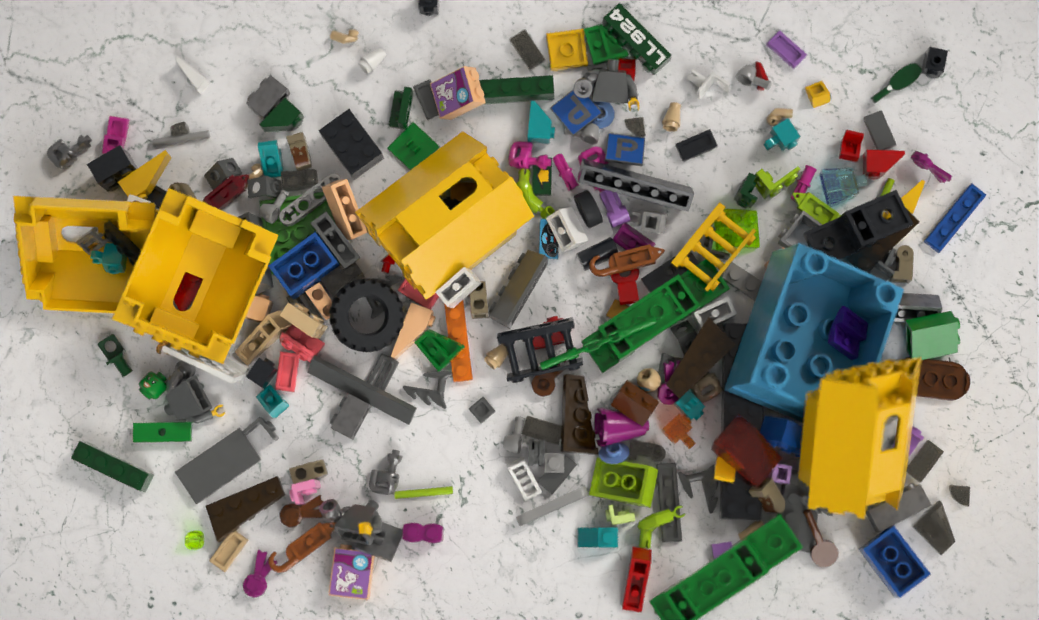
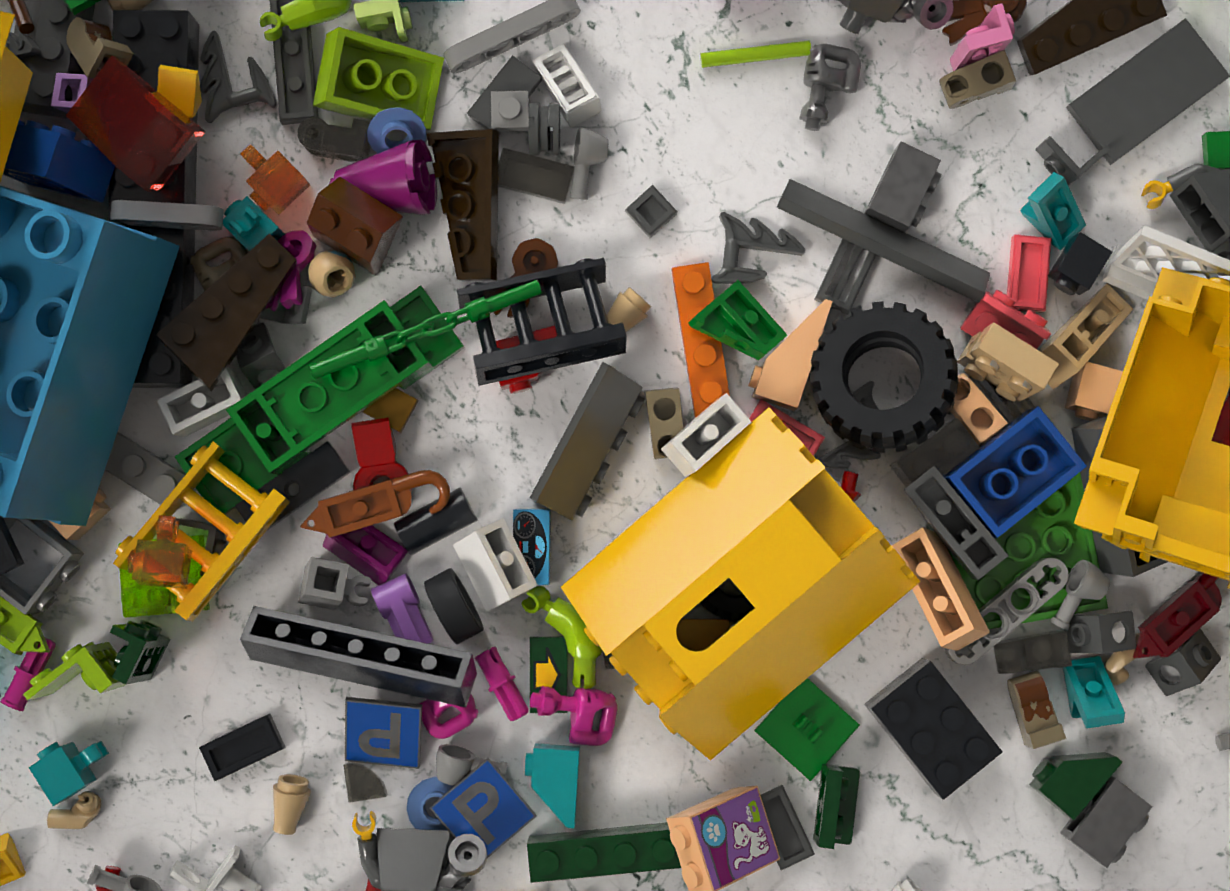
camera: 170 degrees right, 5 degrees up
(730, 405) = (166, 215): none -> light grey beam
(731, 230) = (163, 560): none -> clear orange brick

